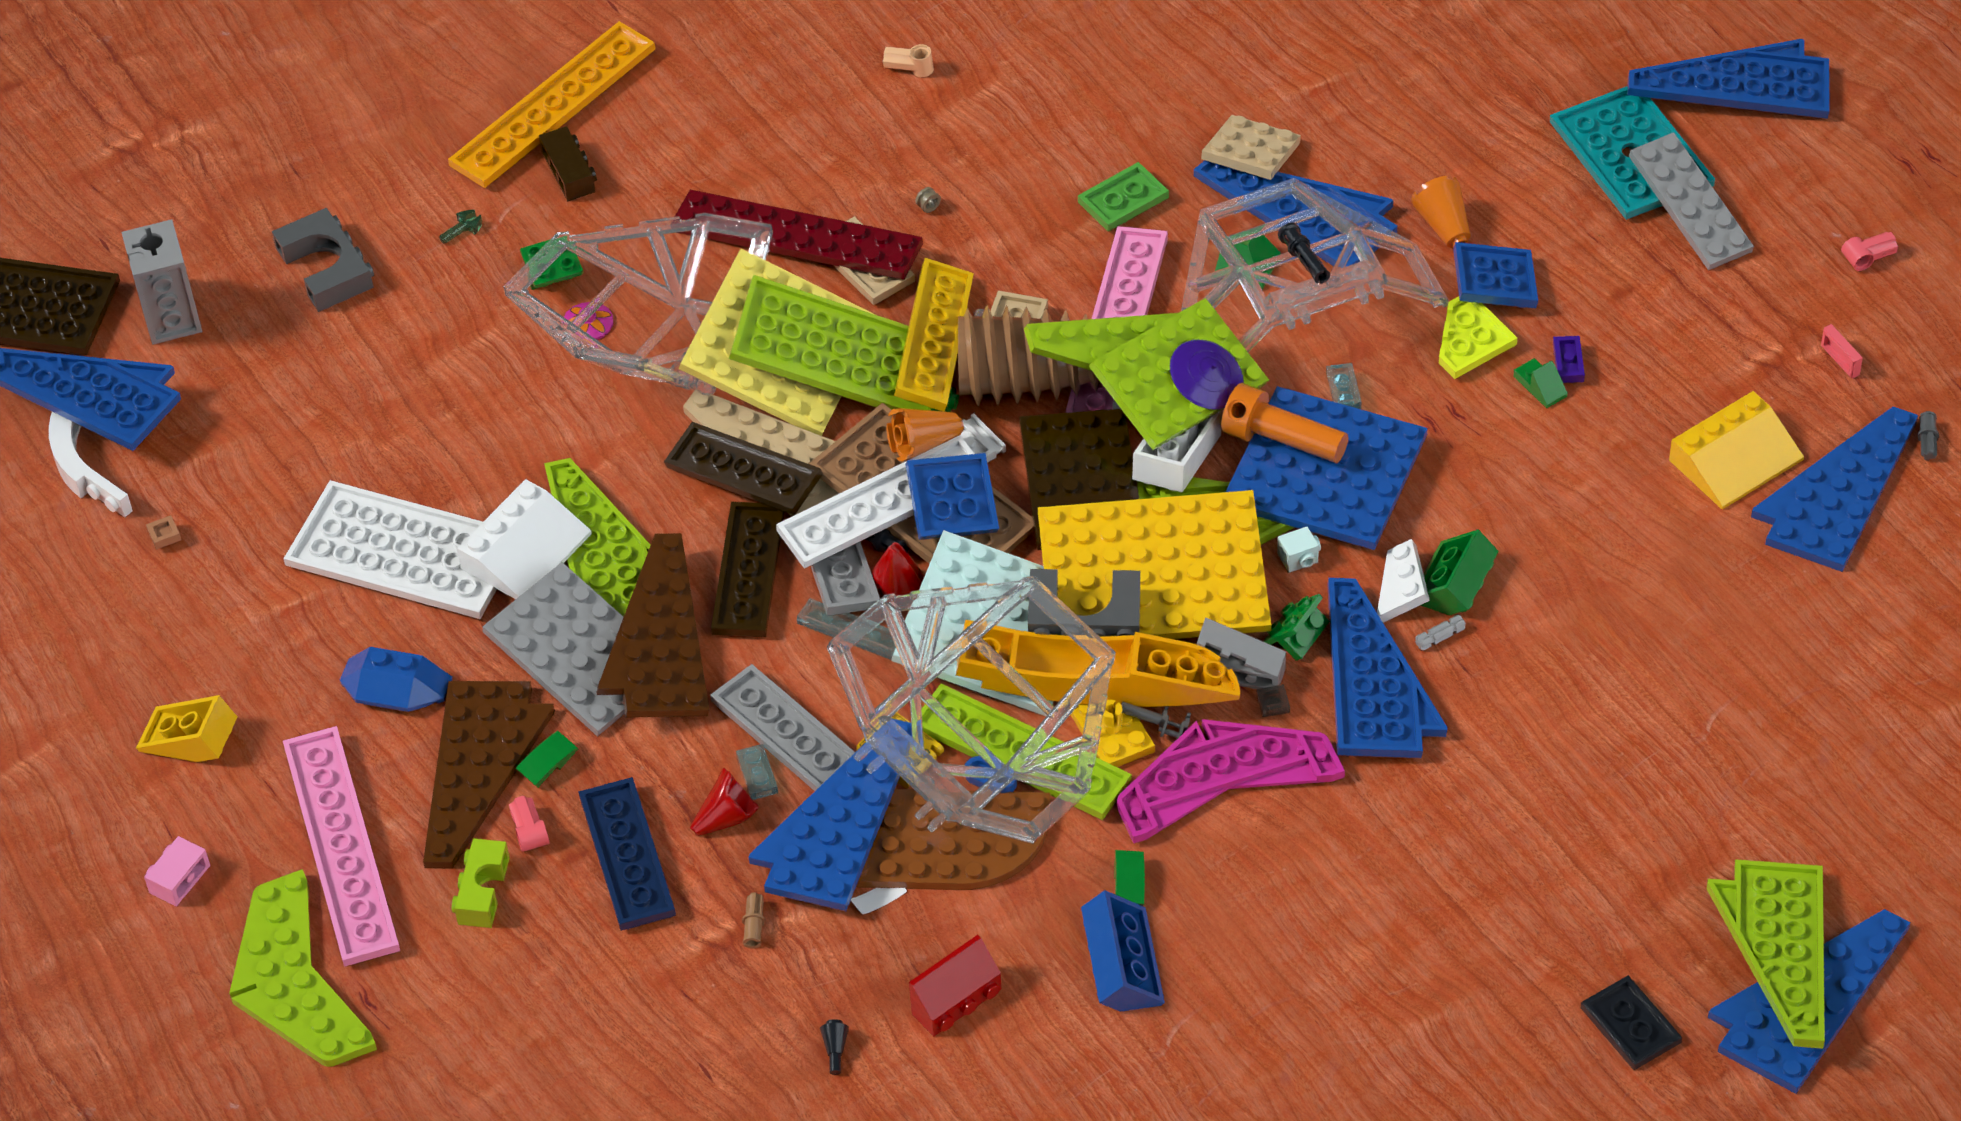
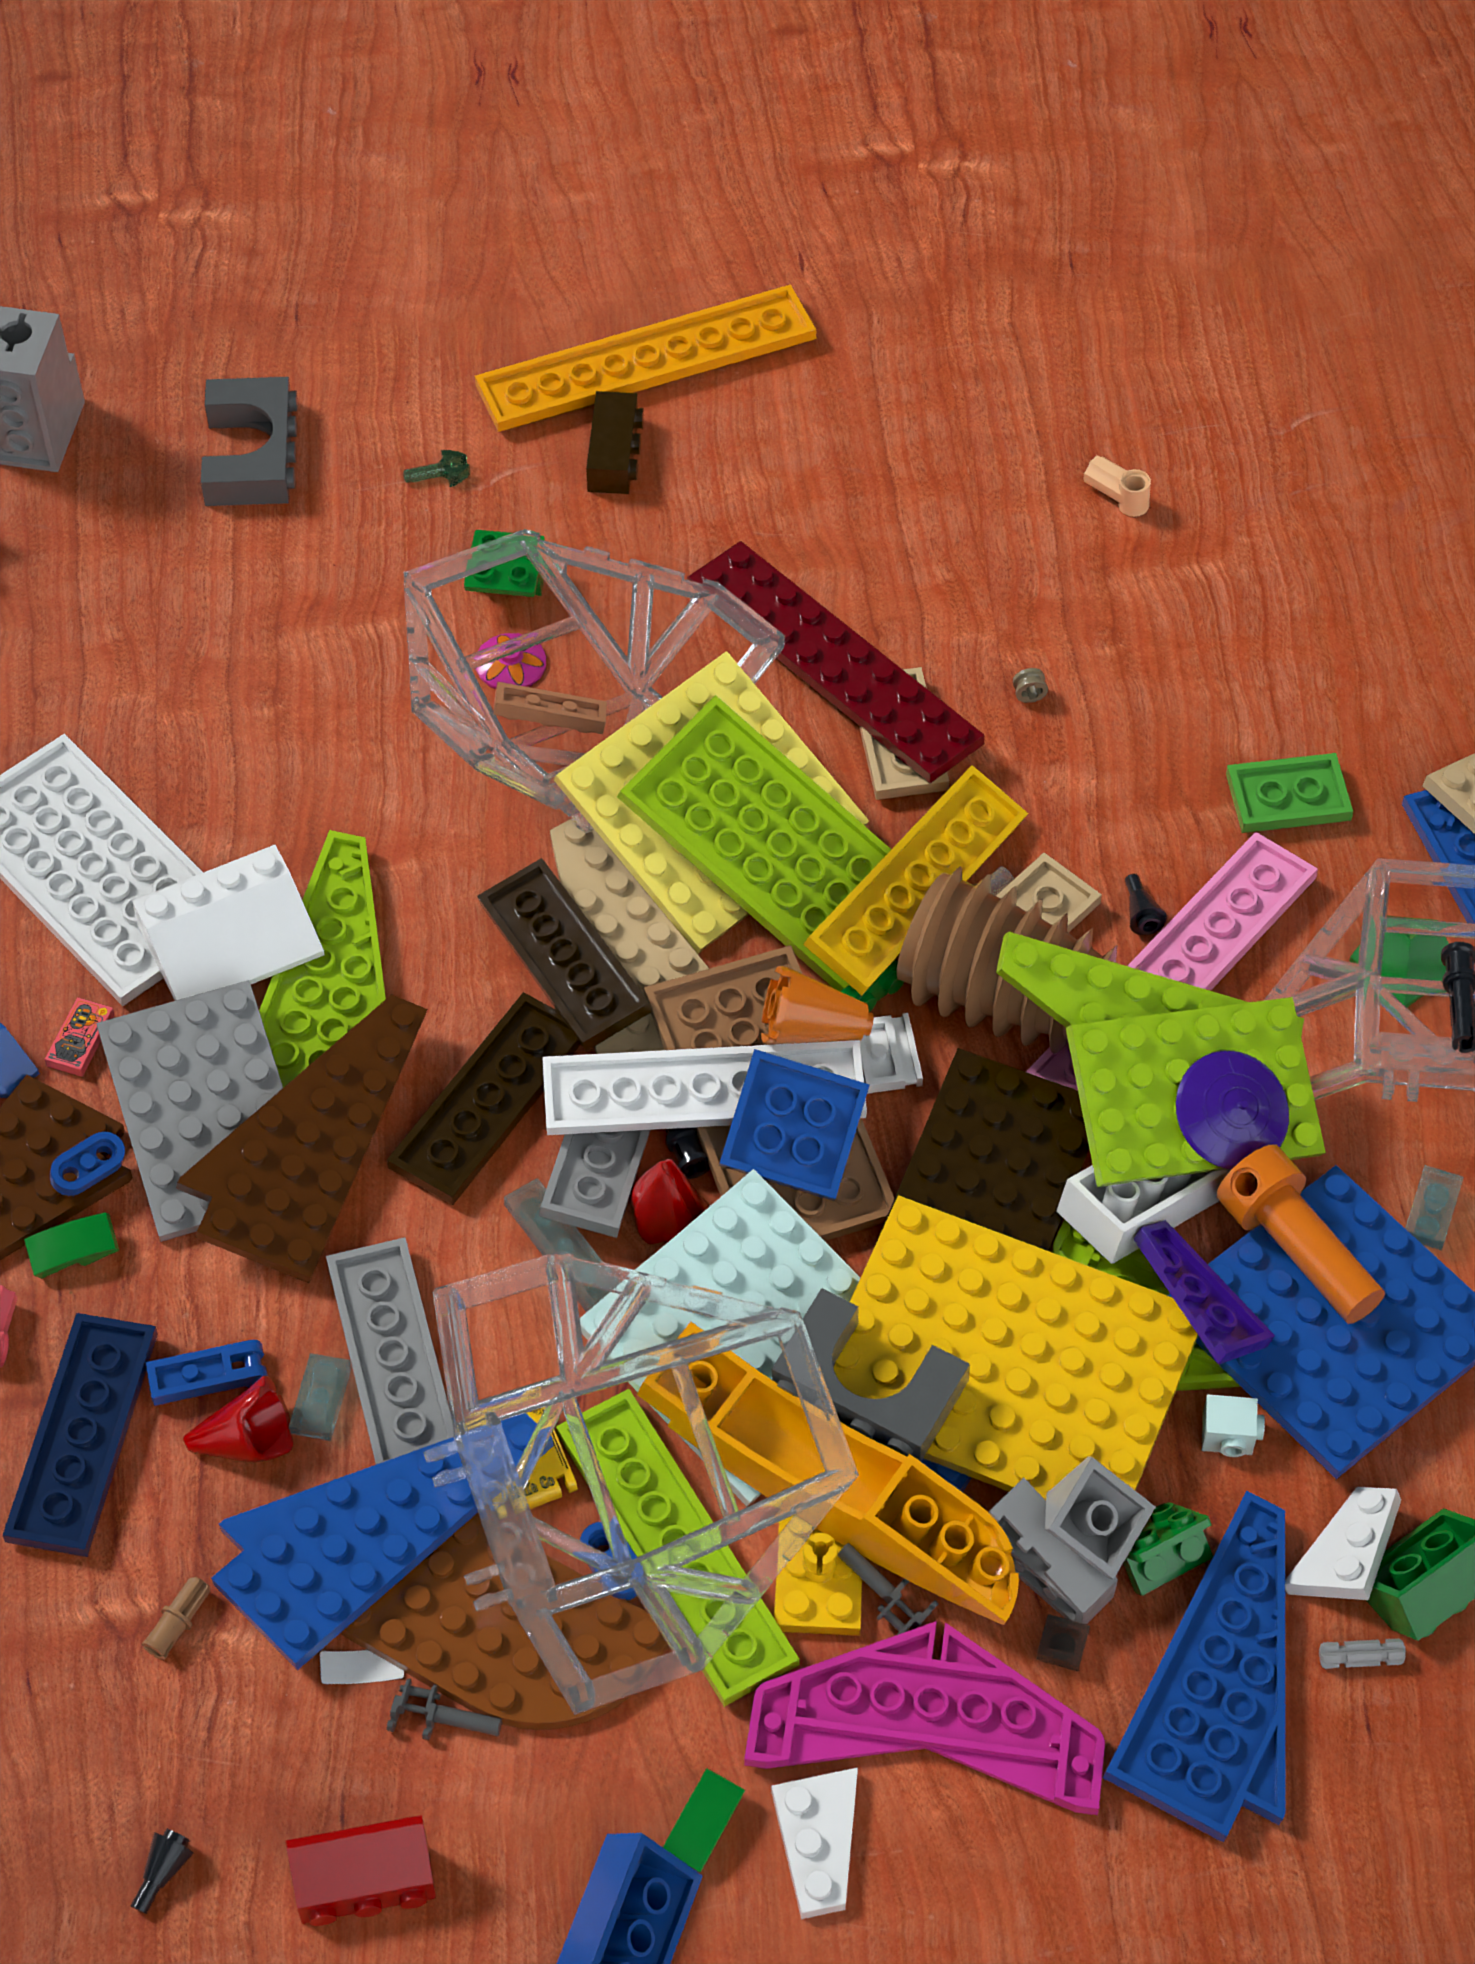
camera: 25 degrees right, 5 degrees up
(465, 647) = (78, 1037): none -> tile
(527, 710) = (85, 1164): none -> blue plate
(643, 331) = (550, 708): none -> nougat plate
(679, 788) = (205, 1371): none -> blue plate
(942, 897) = (439, 1713): none -> dark grey piece
(1079, 299) = (1145, 913): none -> black cone
(1197, 859) = (817, 1837): none -> white wing
(1245, 481) = (1205, 1299): none -> dark purple wing
(1257, 618) = (1087, 1511): none -> light grey slope

